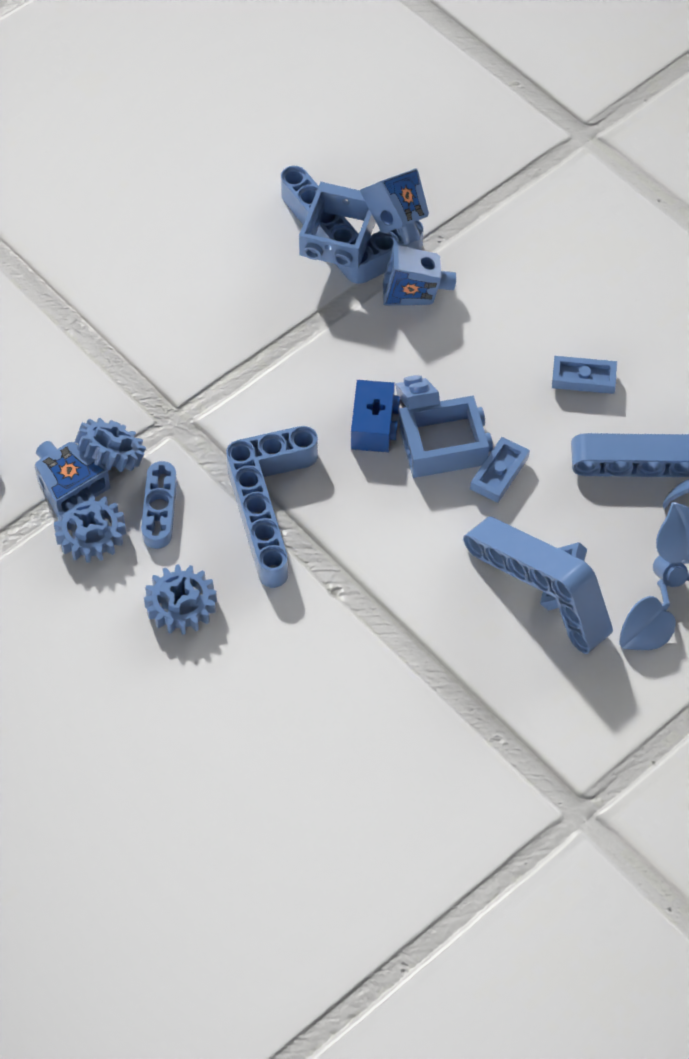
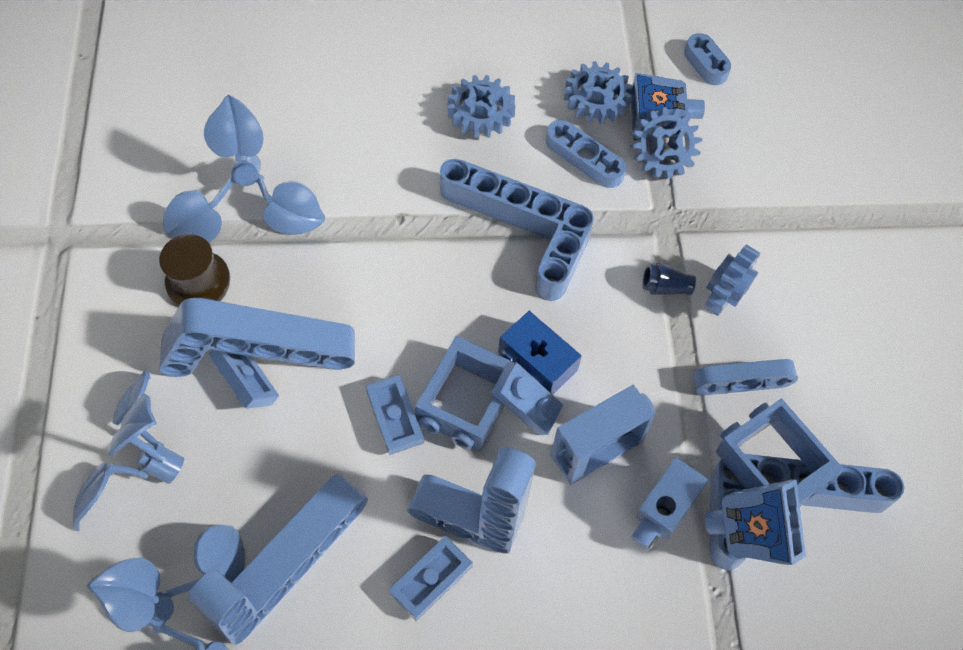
camera: 125 degrees right, 5 degrees up
(210, 329) = (732, 280): none -> medium blue gear
(237, 382) = (664, 280): none -> dark blue cone
(275, 294) = (745, 377): none -> medium blue beam
(405, 706) = (237, 132): none -> medium blue plant
(409, 319) = (602, 433): none -> medium blue window
(520, 342) = (485, 518): none -> medium blue beam
(521, 672) = (193, 269): none -> dark brown piece

